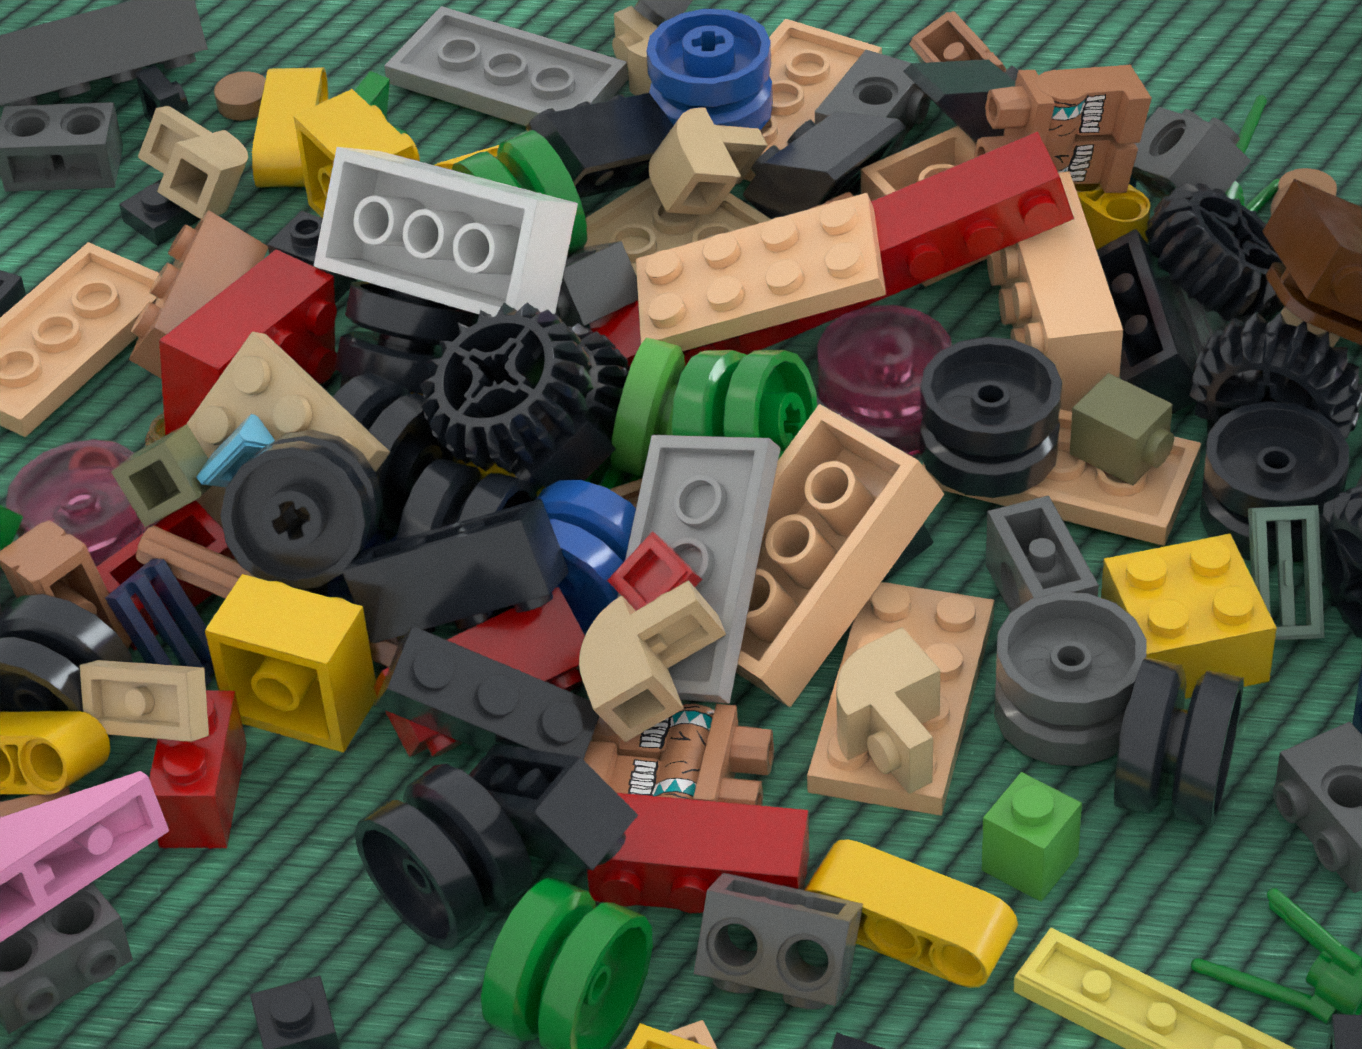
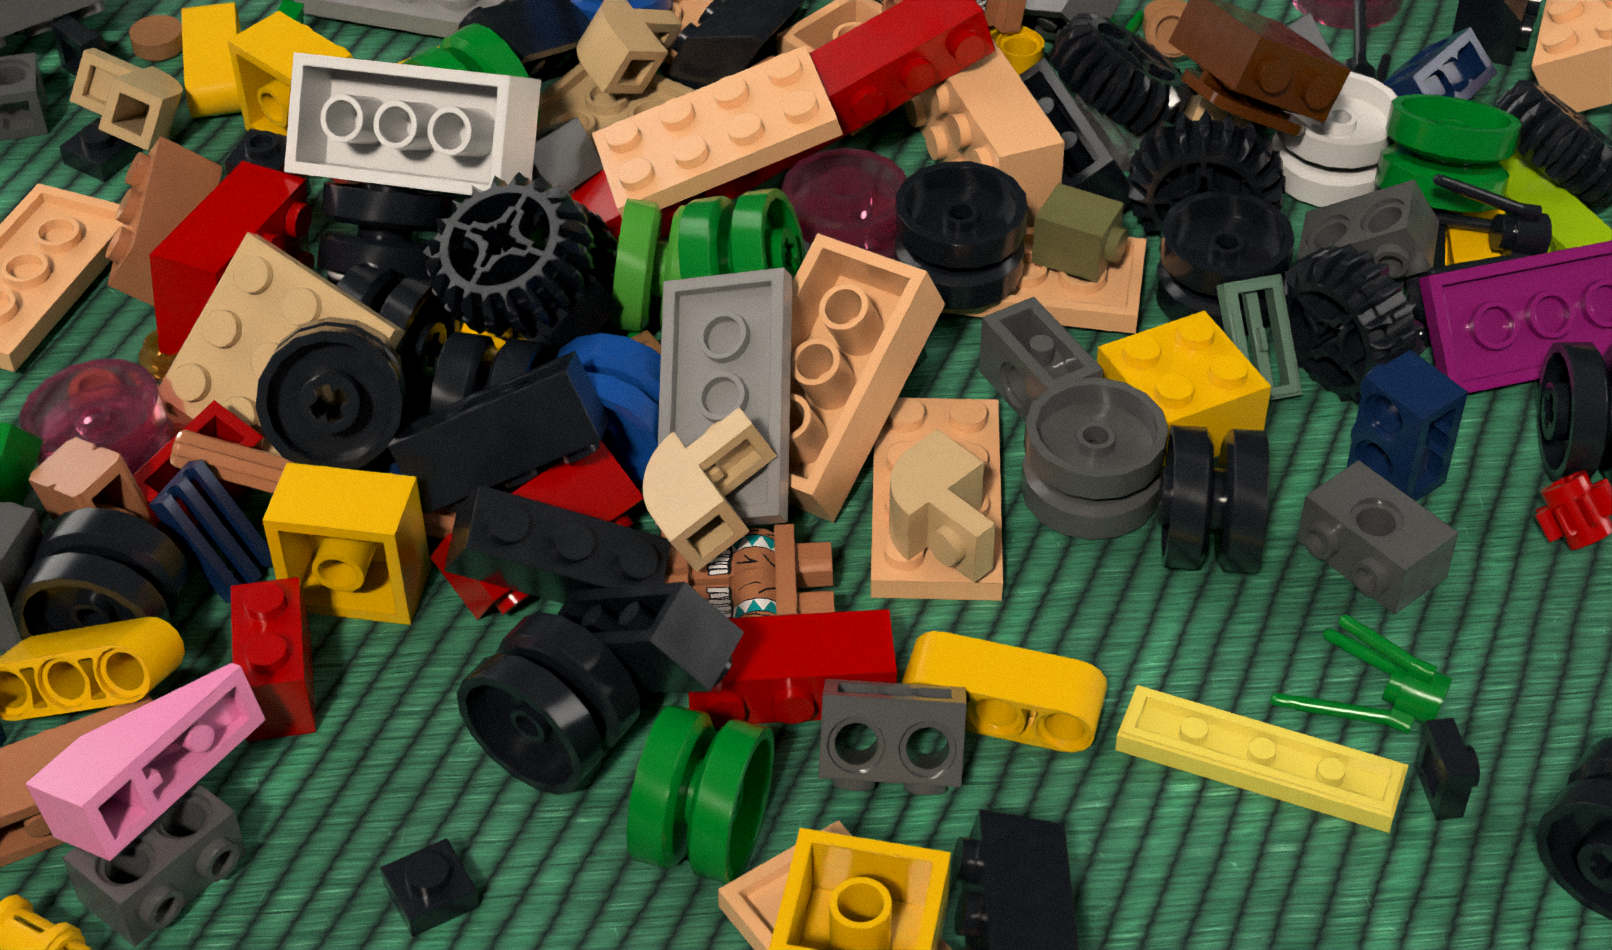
camera: 15 degrees left, 0 degrees up
(146, 699) = (217, 594): tan plate -> none
(163, 475) = (184, 381): olive brick -> none
(234, 452) = (251, 352): medium azure slope -> none
(651, 572) = (691, 409): red tile -> none
(1031, 836) = (1098, 604): bright green brick -> none

